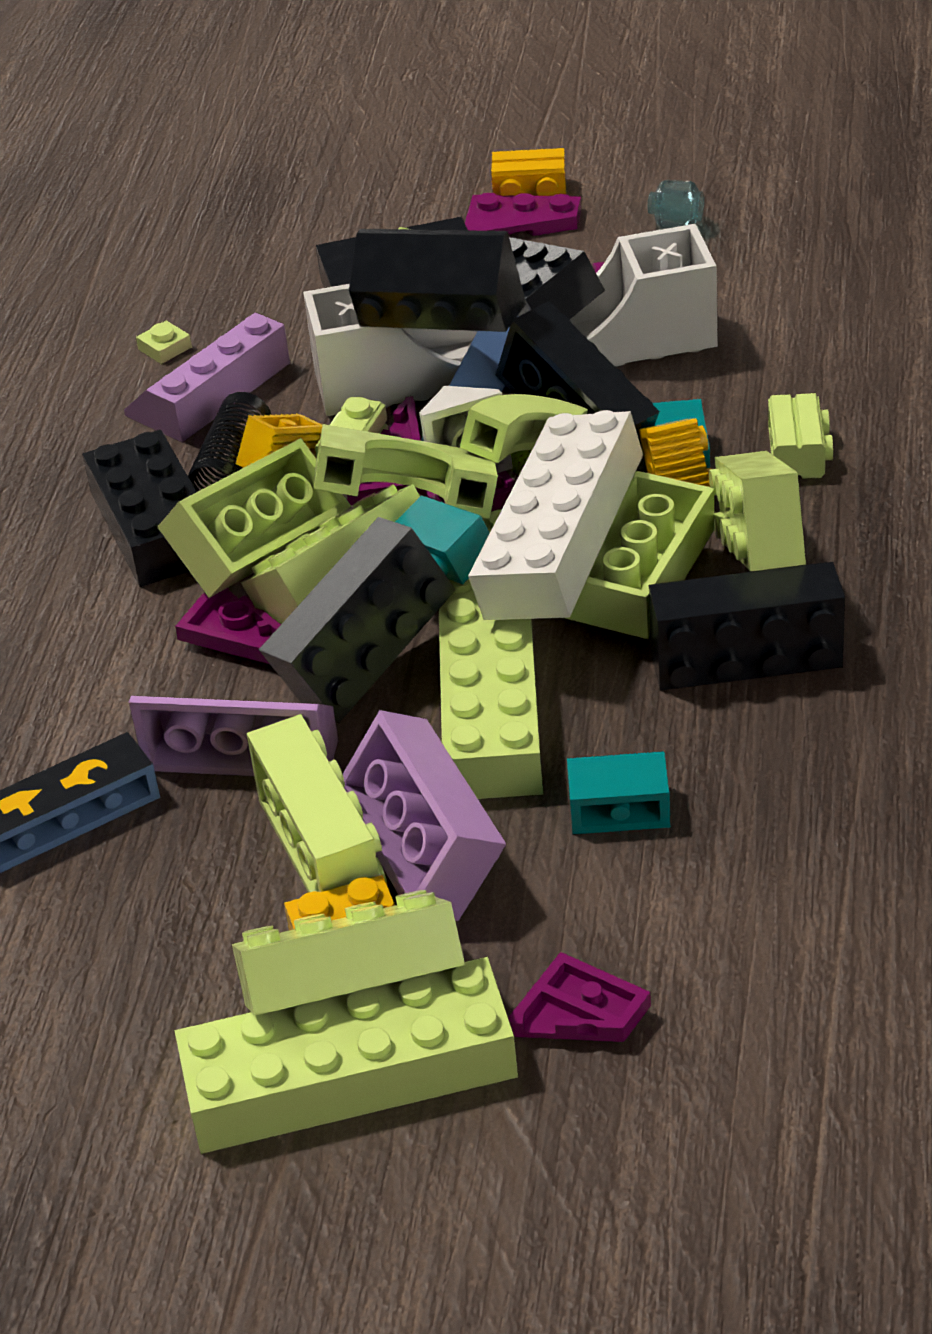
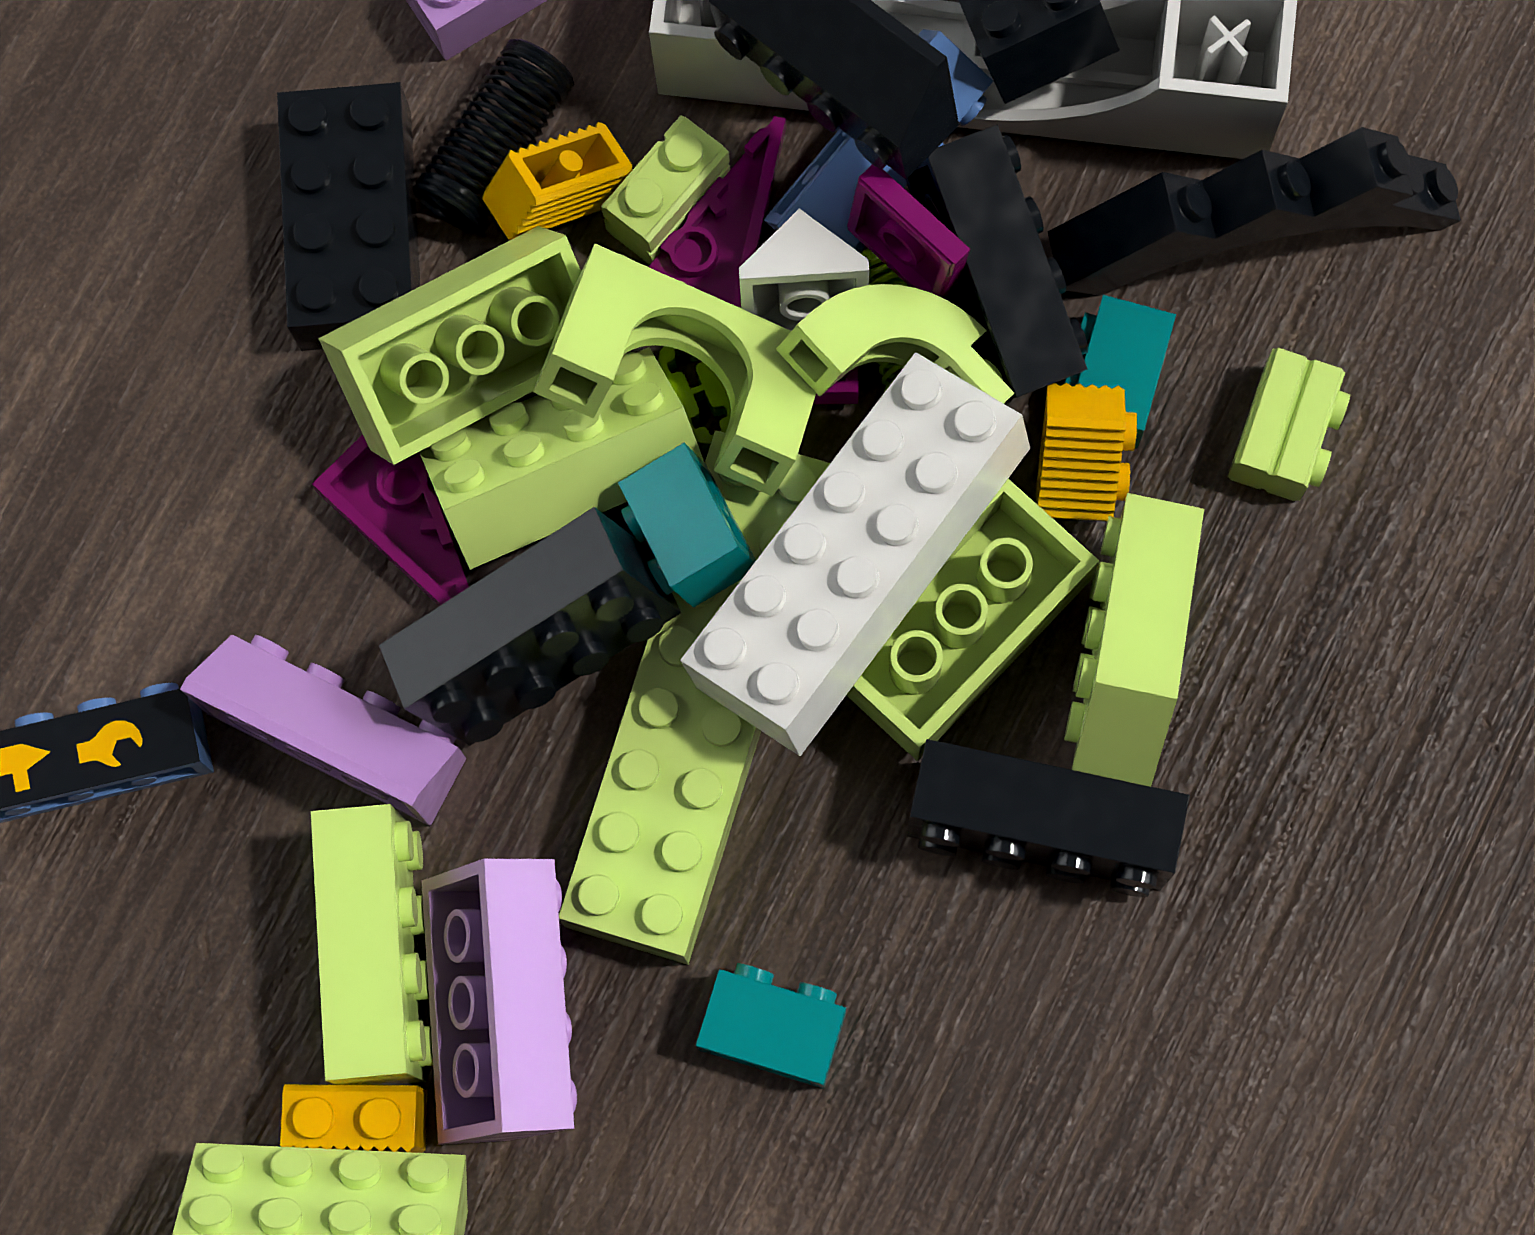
camera: 20 degrees right, 35 degrees up
(517, 366) = (906, 235): none -> magenta tile
(723, 326) = (1264, 197): none -> black arch

